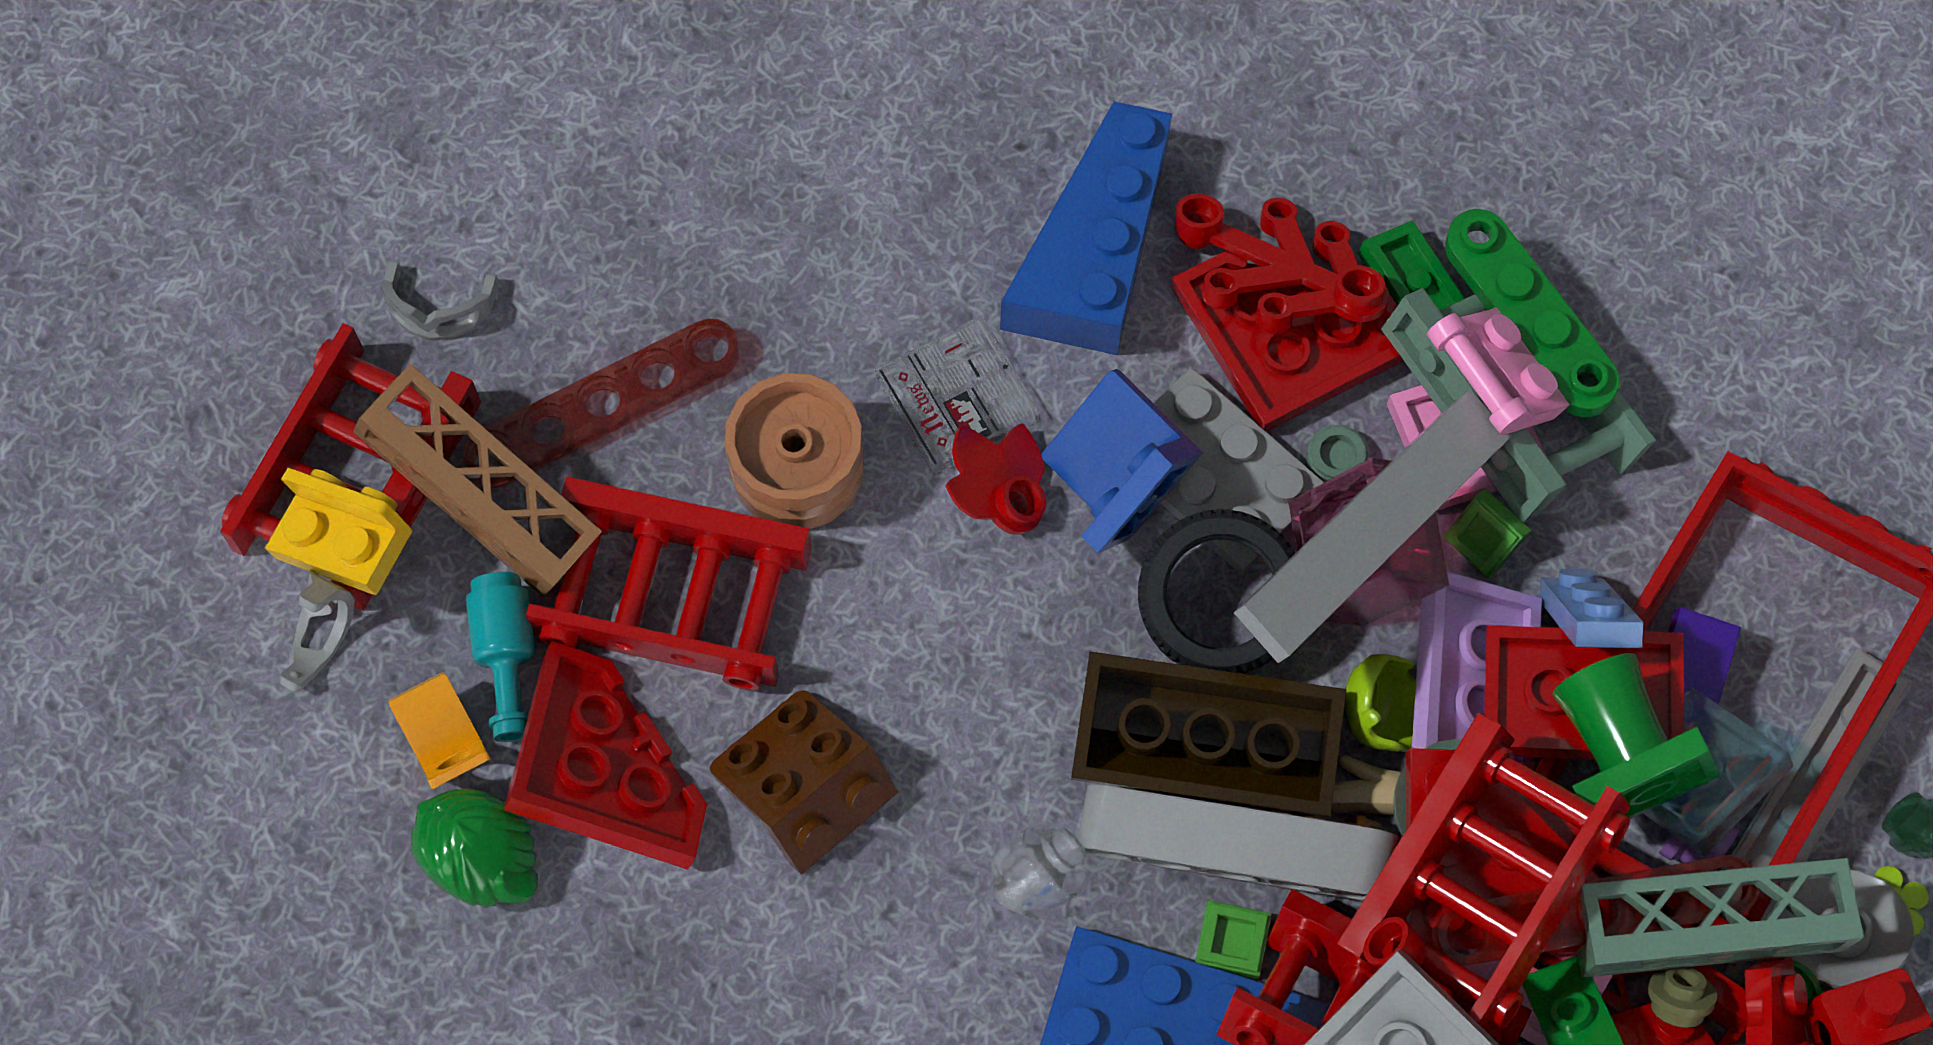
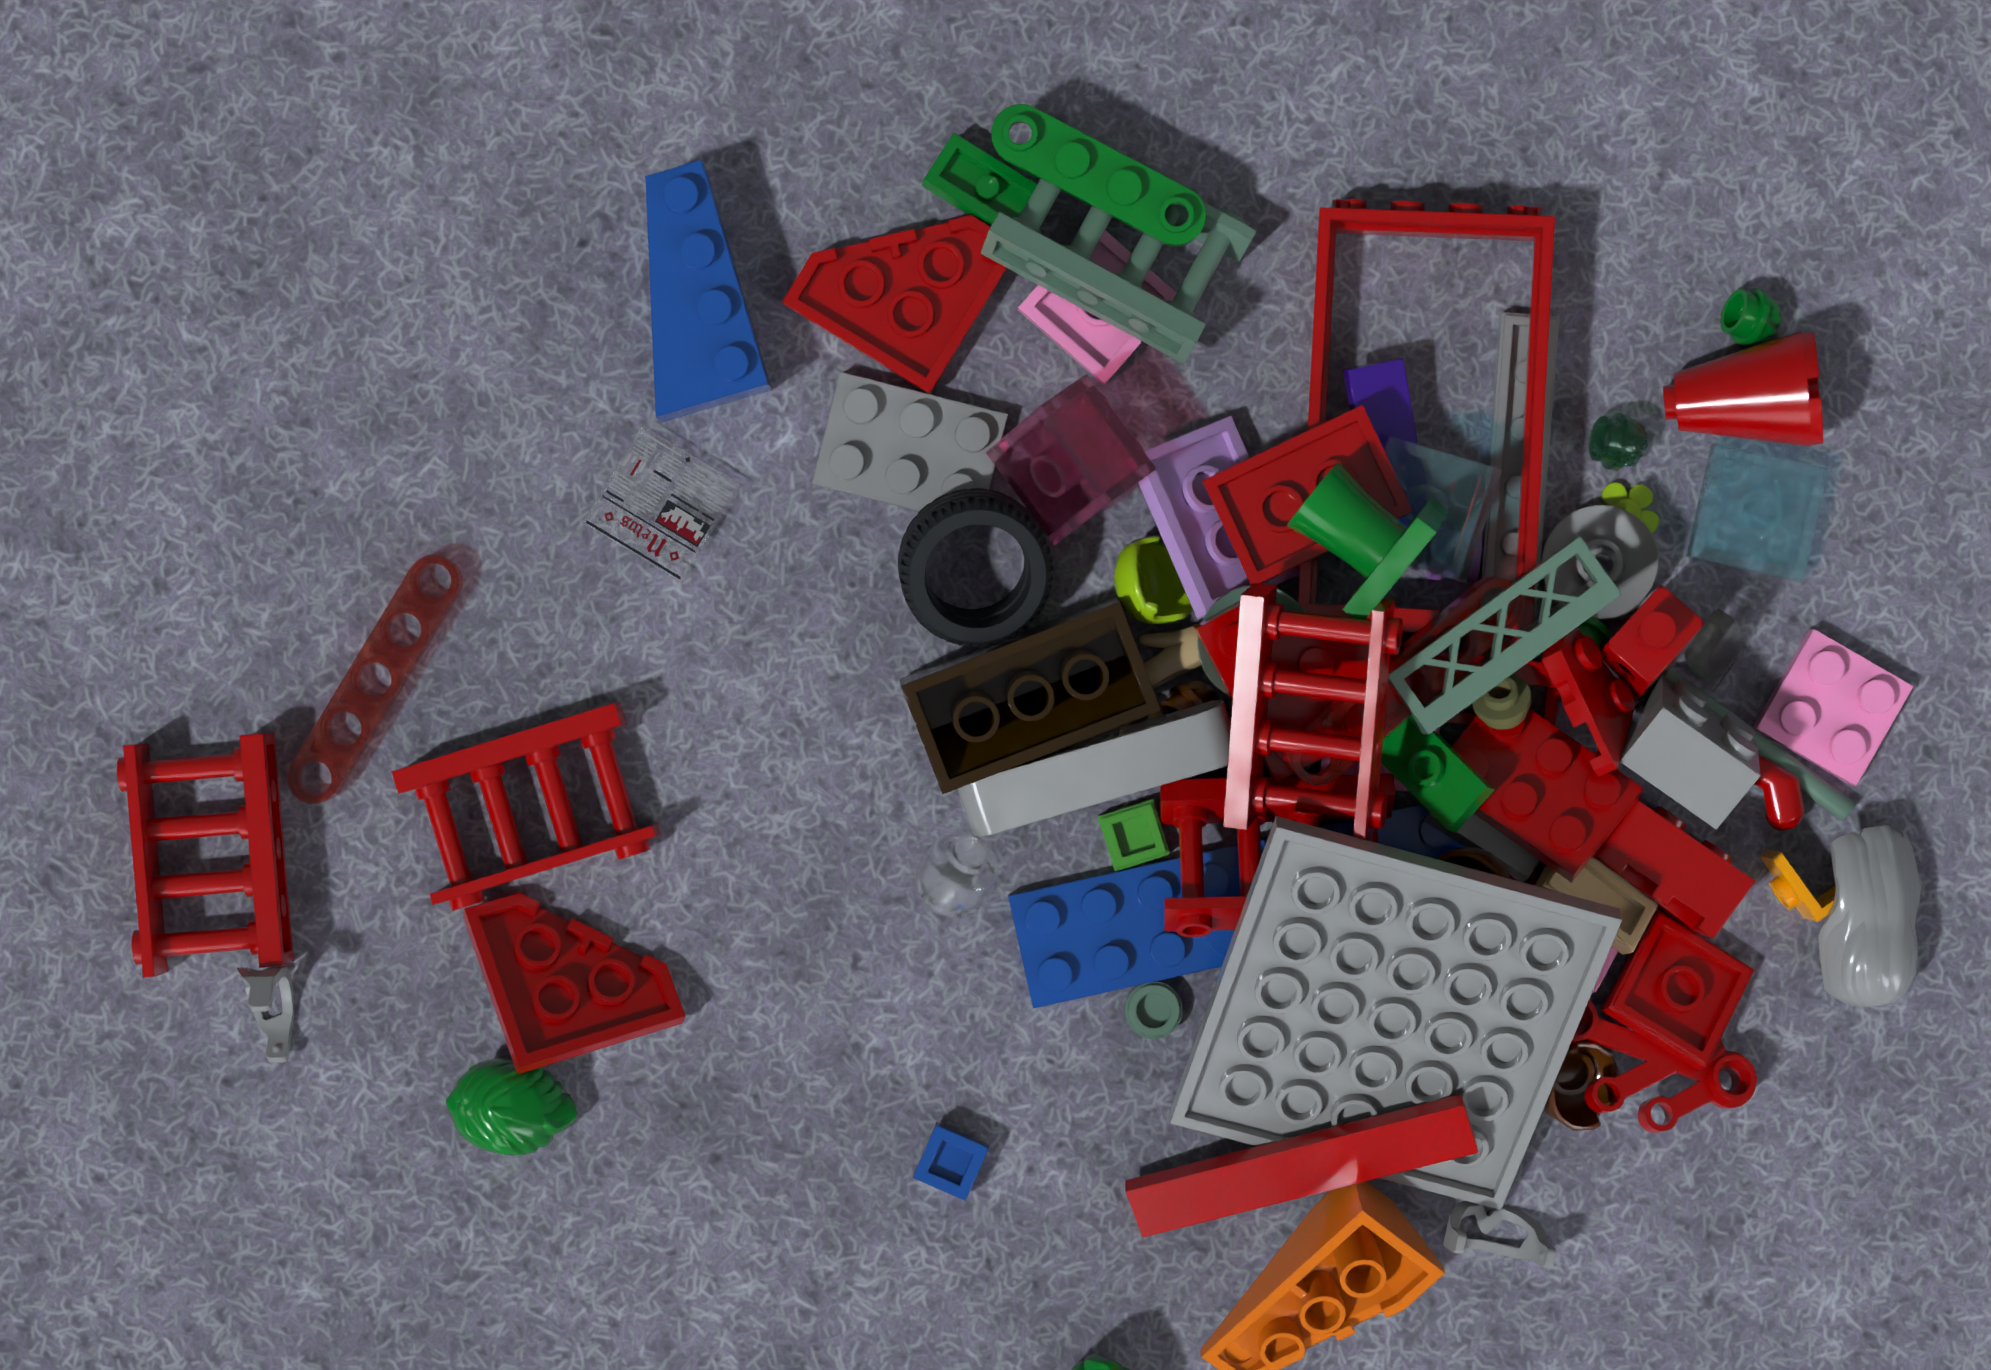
camera: 30 degrees left, 20 degrees up
(339, 531) = (242, 930): yellow bracket -> none
(425, 325) = (201, 689): light grey helmet -> none
(438, 730) = (423, 1030): light orange bracket -> none
(459, 496) = (321, 843): medium nougat fence -> none
(502, 641) = (425, 929): teal piece -> none
(795, 450) = (534, 618): nougat wheel -> none
(804, 778) = (727, 901): reddish brown bracket -> none
(995, 475) = (731, 561): red plate -> none
(1119, 458) = (829, 494): blue bracket -> none
(1335, 451) = (1001, 380): sand green tile -> none
(1349, 291) = (872, 240): red plant -> none
(1371, 527) = (1074, 469): light grey tile -> none
(1388, 938) = (1265, 806): red hinge -> none
(1486, 533) = (1159, 384): bright green tile -> none
(1500, 369) = (1101, 254): bright pink plate -> none
(1590, 610) = (1279, 422): medium blue plate -> none

